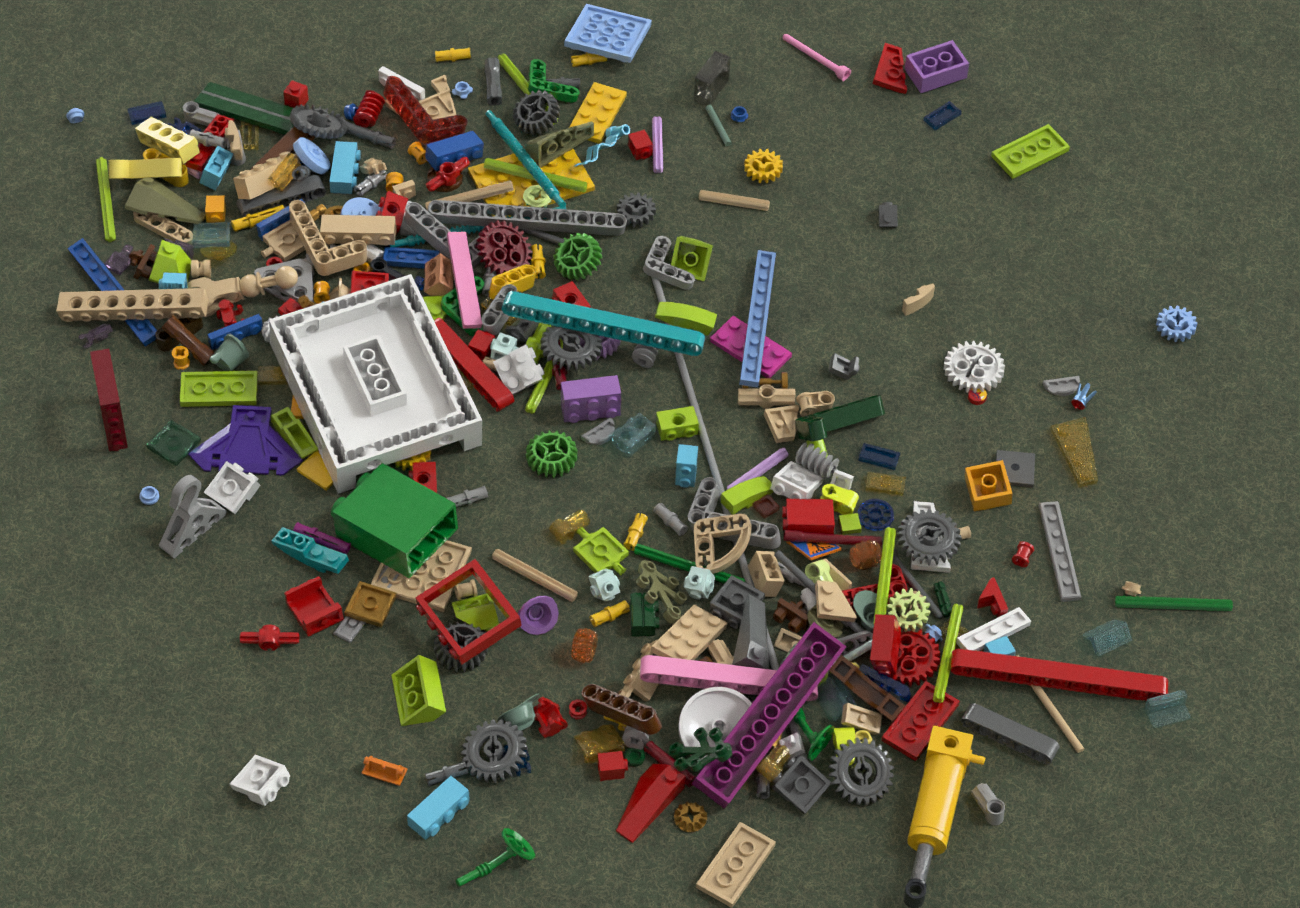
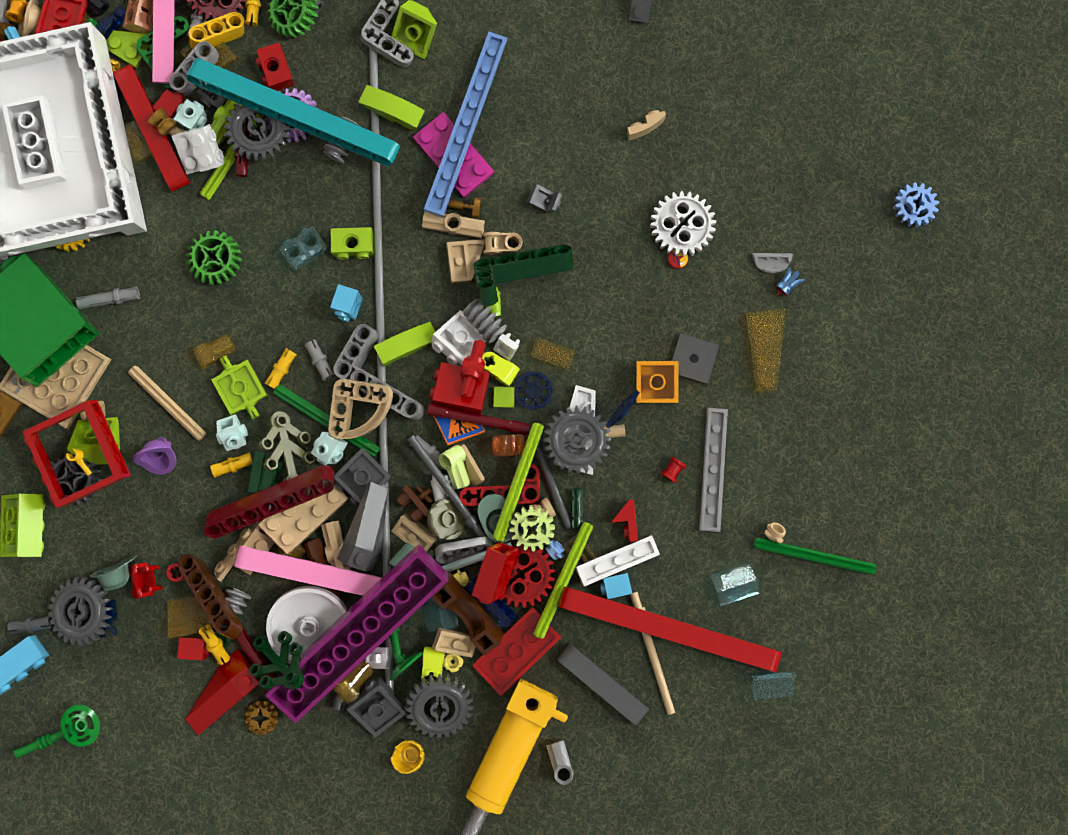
camera: 15 degrees right, 30 degrees up
(424, 473) = (81, 281): red brick -> none
(474, 609) = (79, 459): none -> yellow hand
(482, 351) = (162, 122): none -> pearl gold wheel
(584, 645) = (194, 503): clear orange gear -> none
(590, 399) = (265, 200): medium lavender brick -> none
(600, 433) = (272, 238): light grey tile -> none
(632, 755) = (214, 644): none -> yellow pin
(667, 626) = (269, 502): none -> dark red beam
(735, 864) = (292, 783): tan plate -> none
(762, 467) = (424, 314): lavender axle -> none
(765, 506) = (422, 360): clear red tile -> none
(766, 573) = (399, 450): tan brick -> none
(818, 495) = (472, 369): none -> red axle
(832, 603) = (455, 504): tan wing -> none
(845, 818) = (415, 757): none -> yellow hair
(879, 456) = (555, 318): tile -> none
(964, 505) = (622, 409): none -> piece

